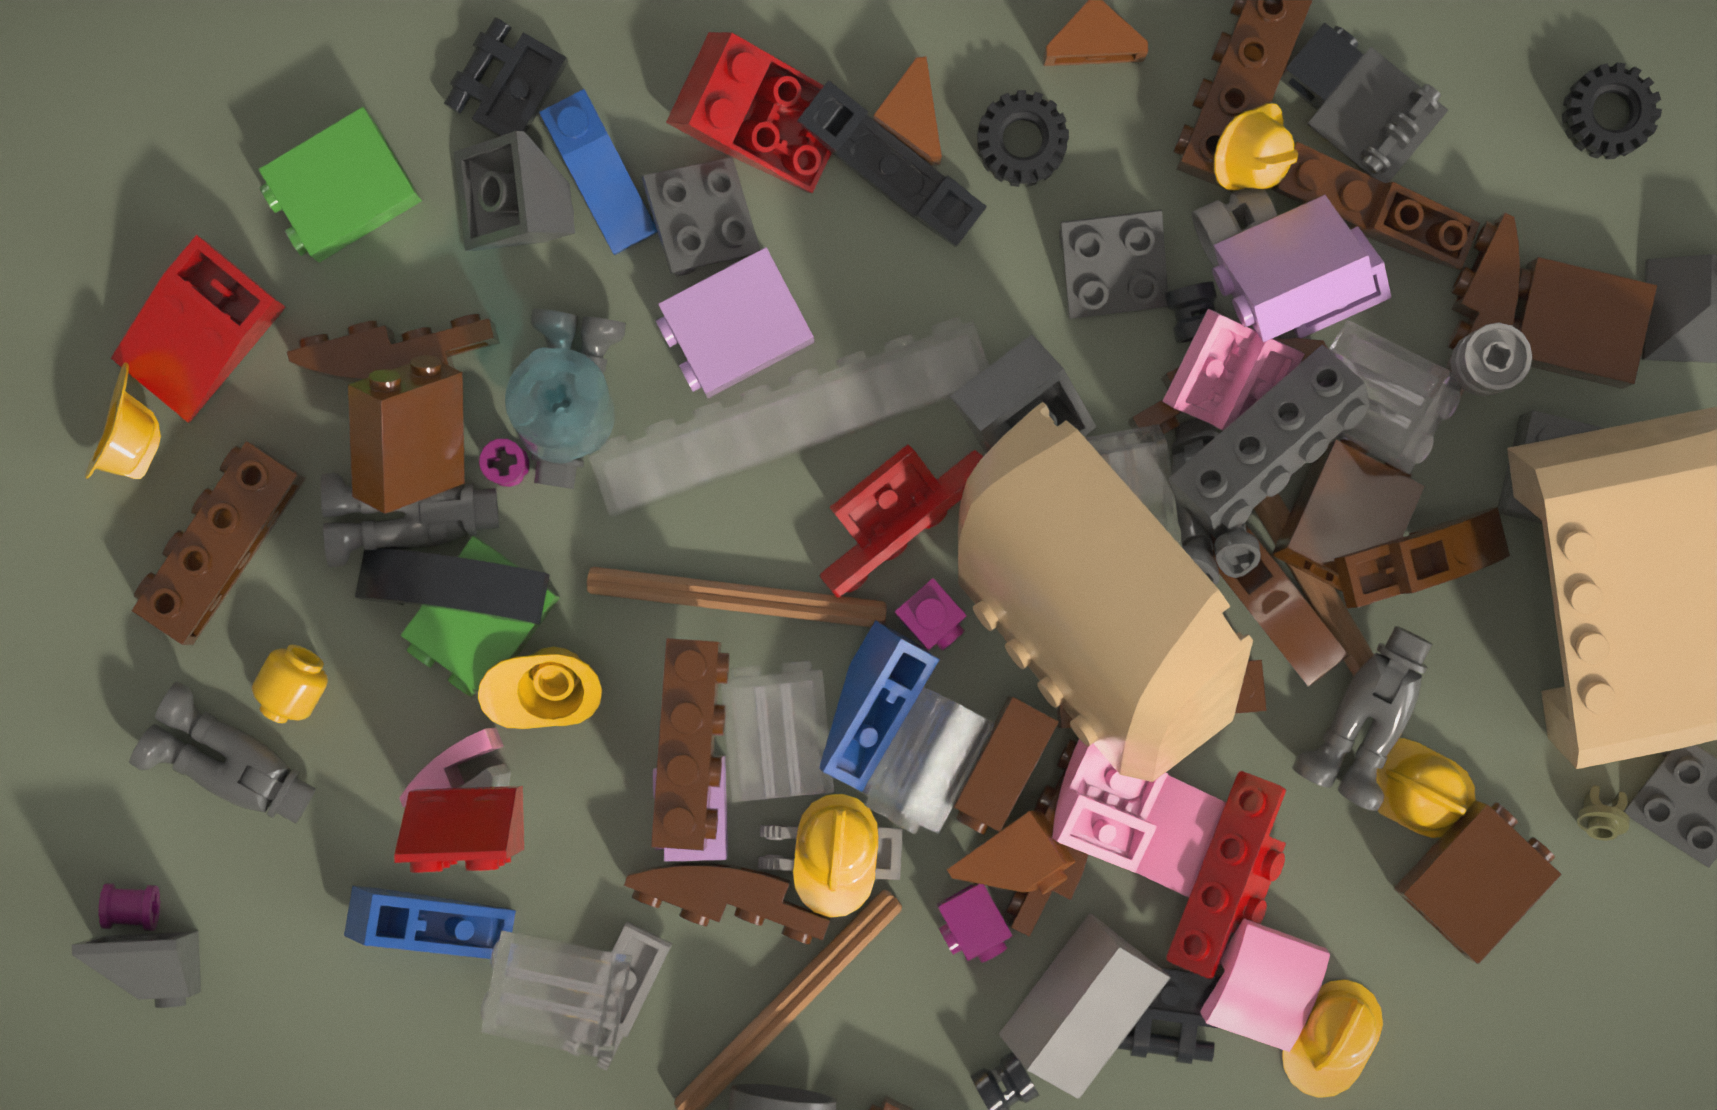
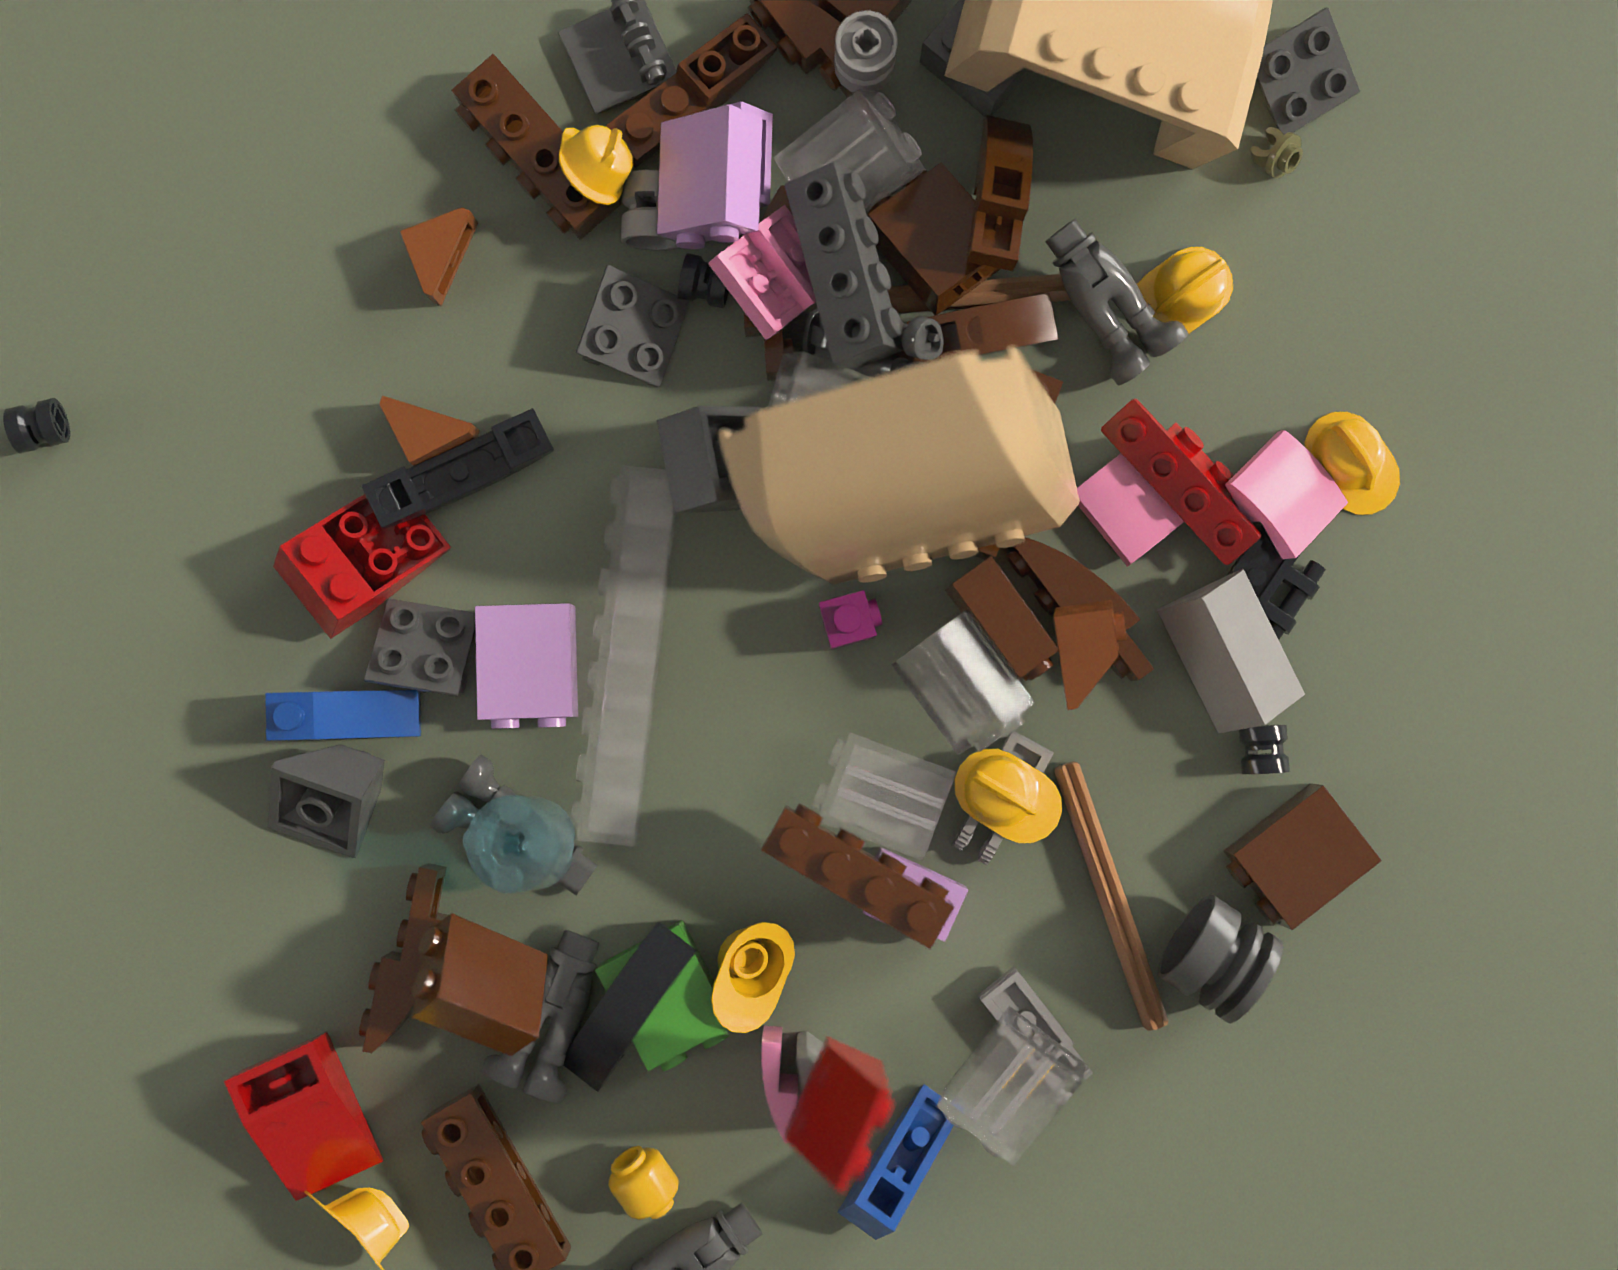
camera: 65 degrees left, 0 degrees up
(338, 186) = (246, 939): bright green brick -> none
(492, 453) = (534, 918): magenta bush -> none
(519, 87) = (239, 746): black plate -> none
(708, 887) = (983, 915): reddish brown slope -> none
(735, 597) = (754, 774): medium nougat axle -> none
(874, 703) = (898, 702): blue slope -> none
(890, 511) = (745, 608): red bracket -> none
(973, 924) = (1119, 710): magenta brick -> none
(1032, 109) = (471, 332): black tyre -> none
(1104, 810) = (1080, 556): bright pink slope -> none
(1322, 64) = (553, 76): black brick -> none
(1479, 880) = (1283, 279): reddish brown brick -> none

